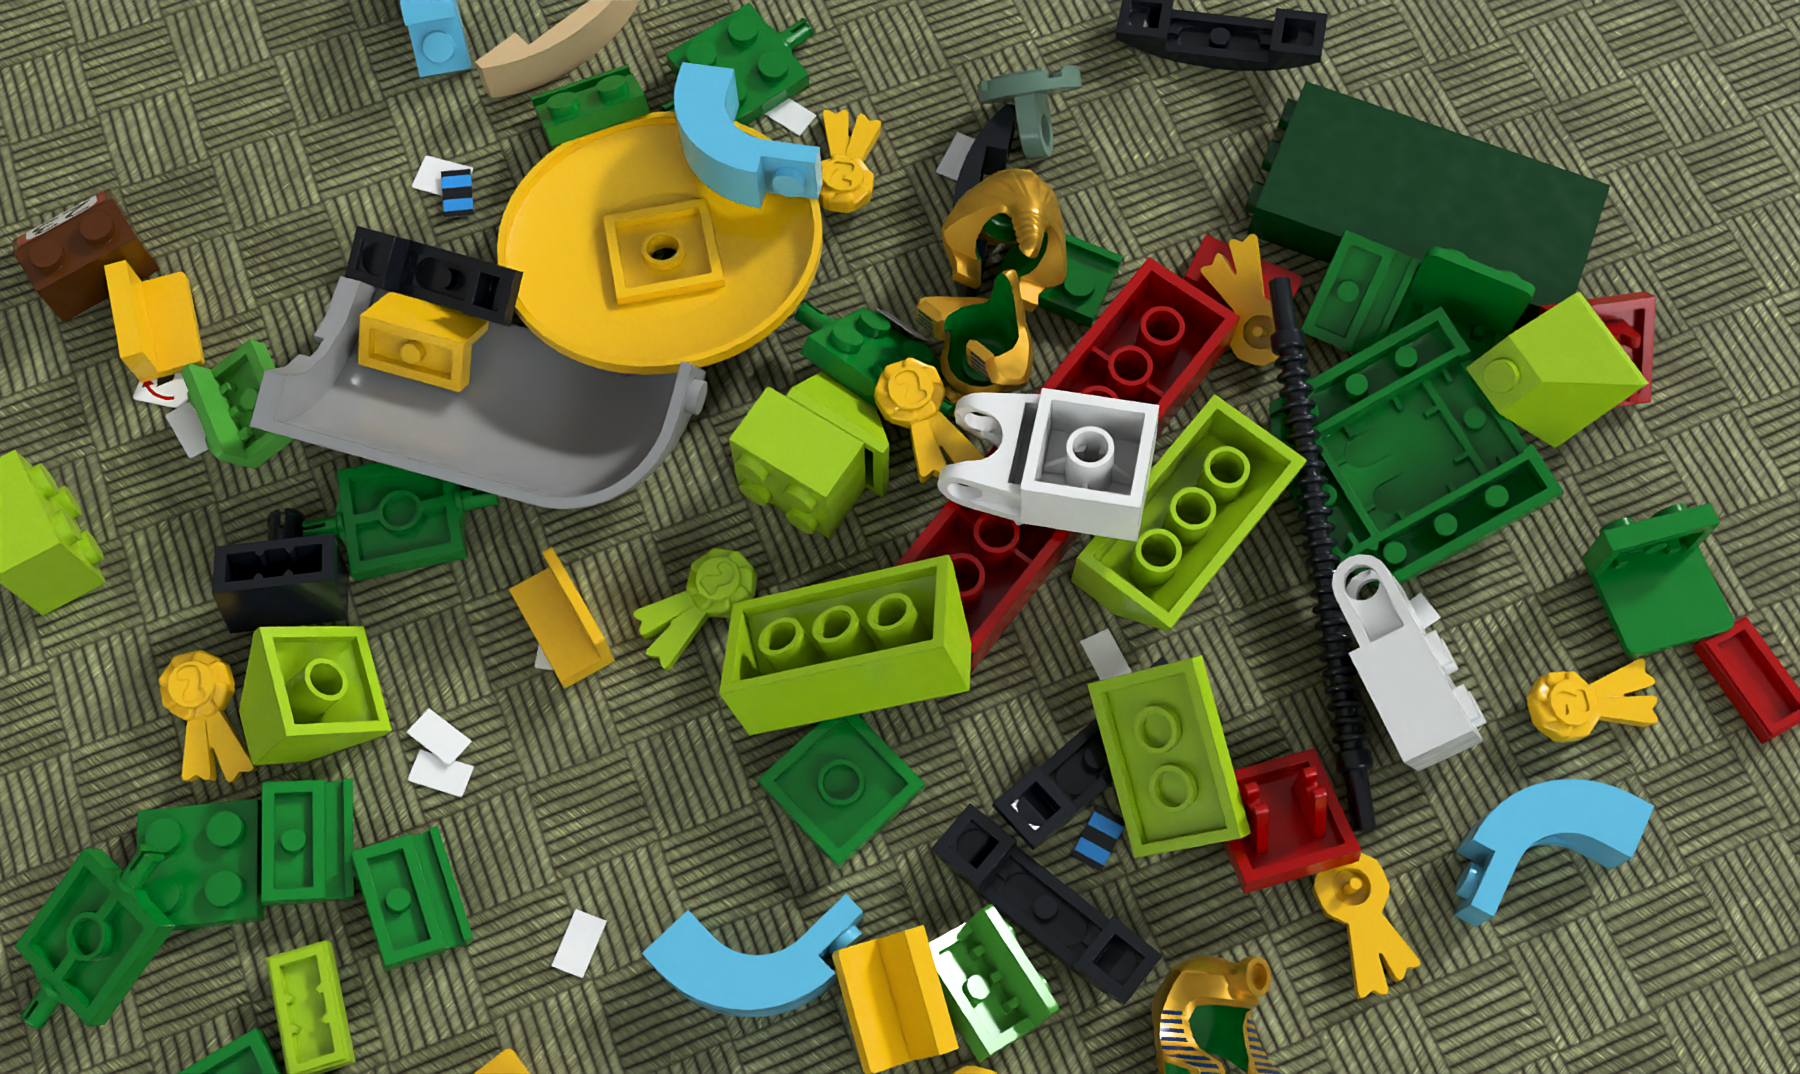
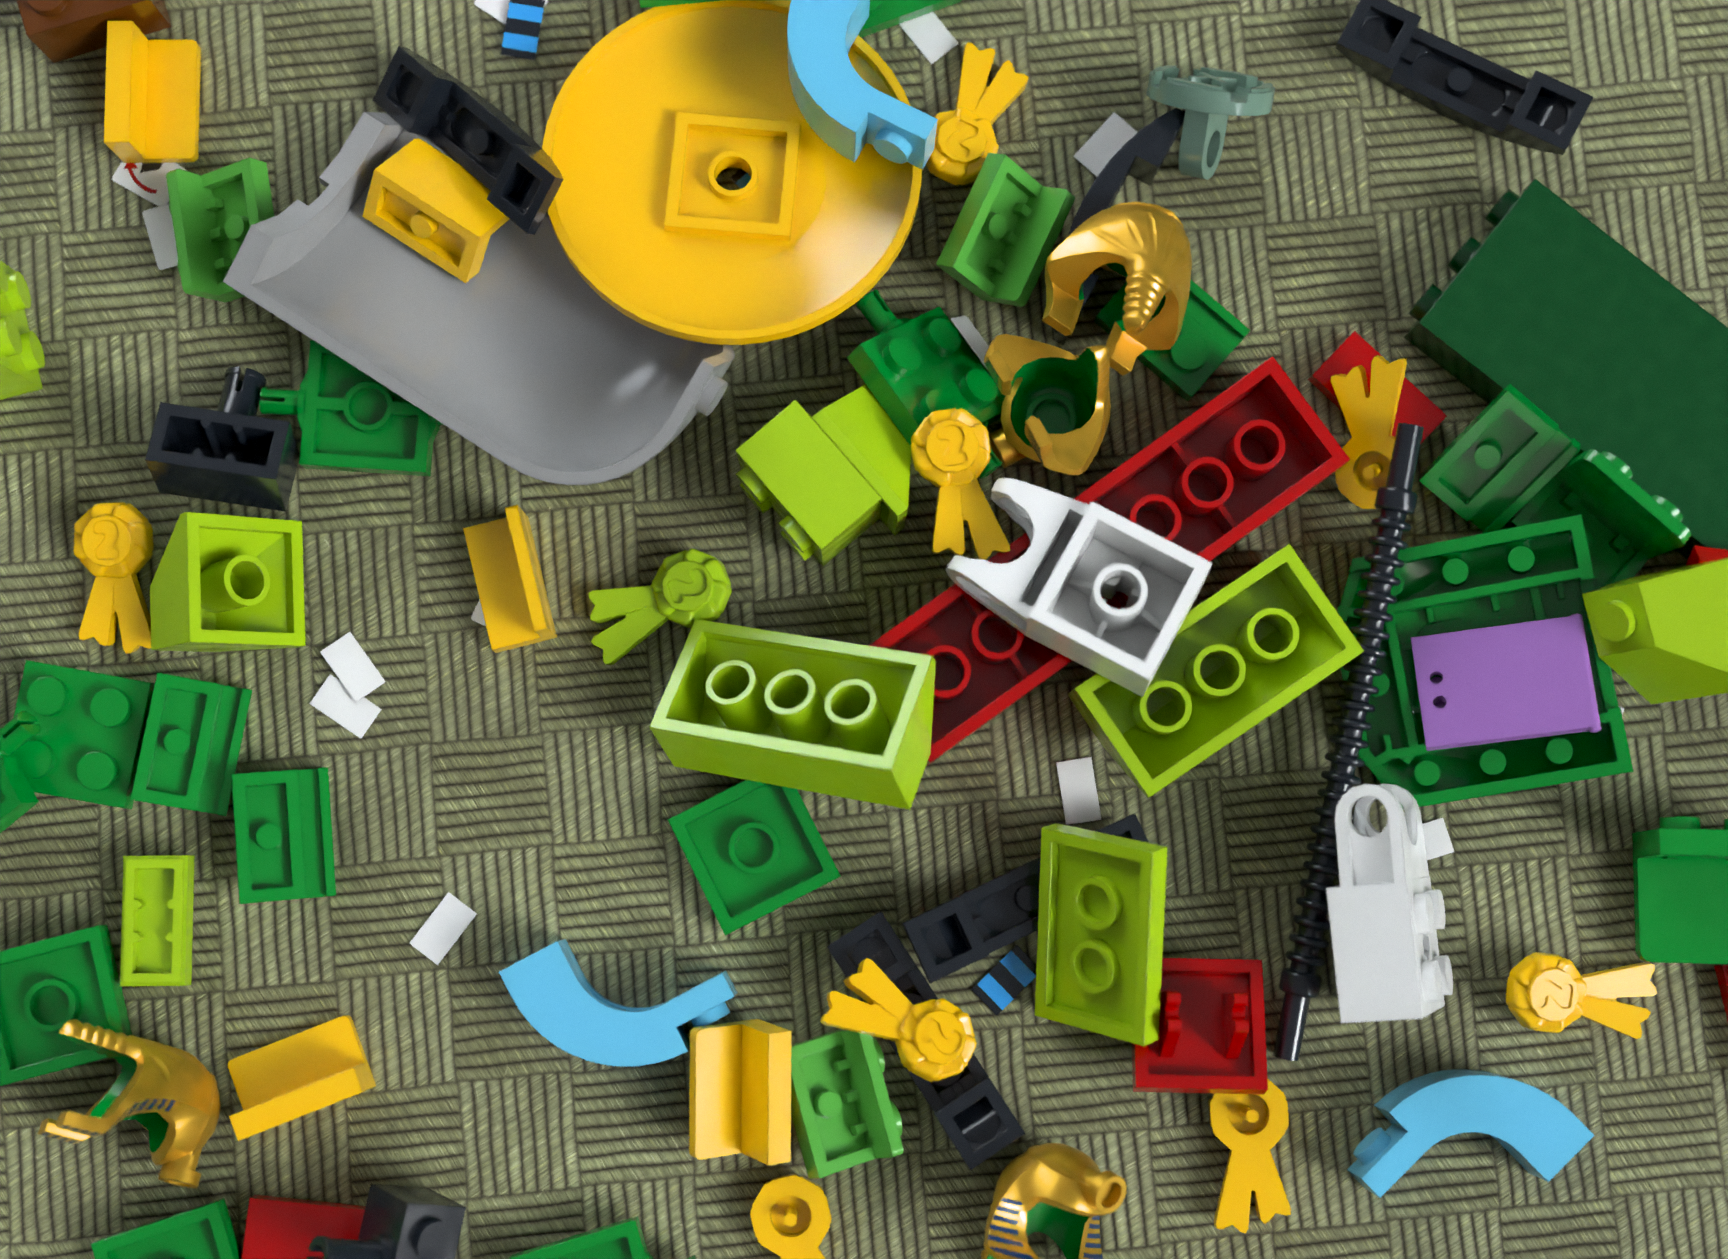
camera: 15 degrees right, 15 degrees up
(899, 235) = (1004, 232): none -> bright green bracket
(1048, 895) = (930, 1037): none -> yellow piece
(1431, 459) = (1505, 683): none -> medium lavender container

